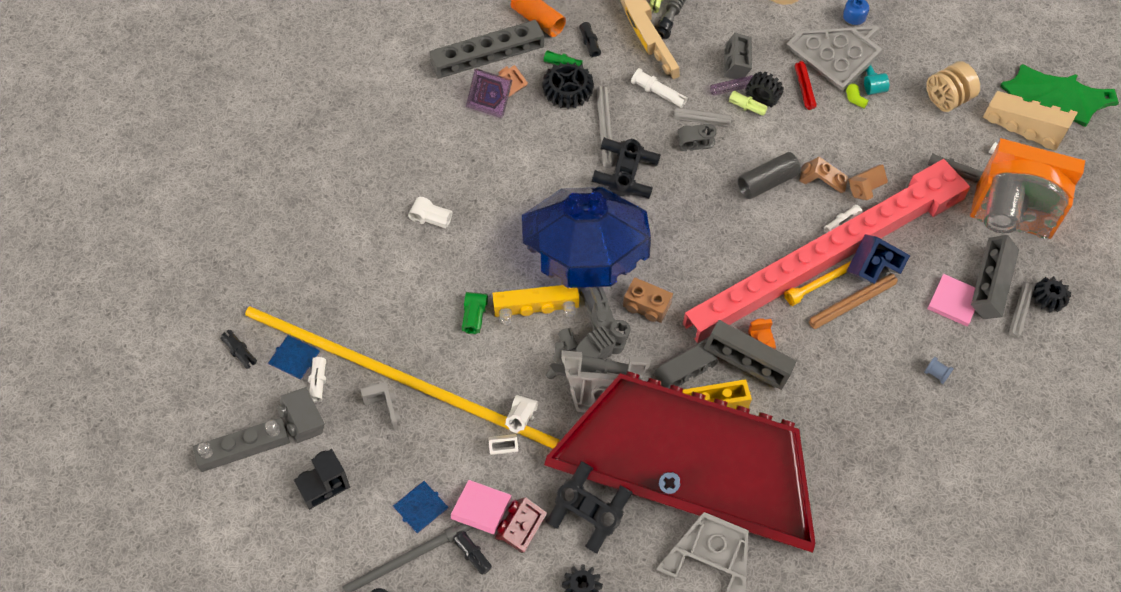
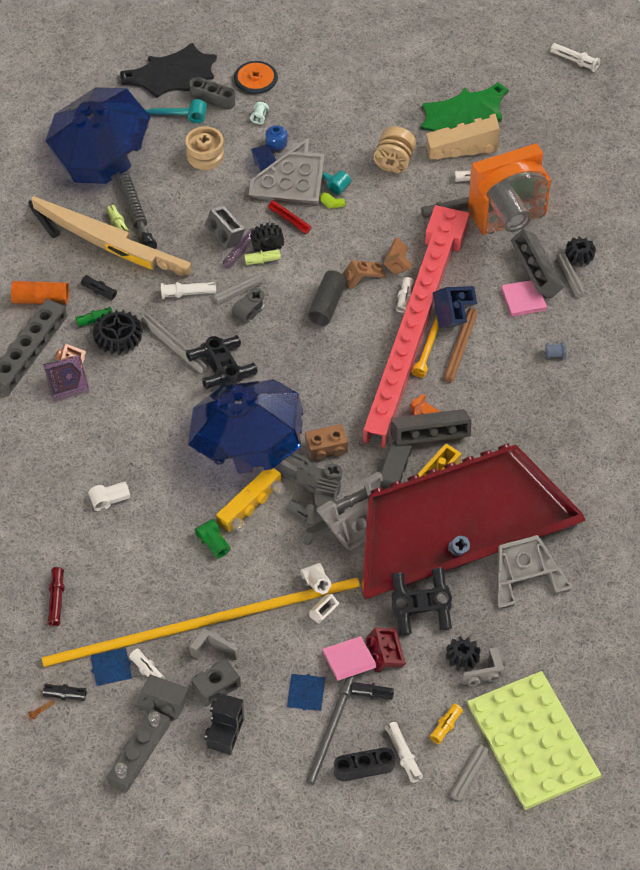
camera: 40 degrees left, 5 degrees down
(198, 348) = (32, 714): none -> clear orange piece
(316, 258) = (56, 588): none -> dark red pin
(364, 444) = (220, 671): none -> dark grey brick
(829, 19) = (263, 156): none -> clear blue slope

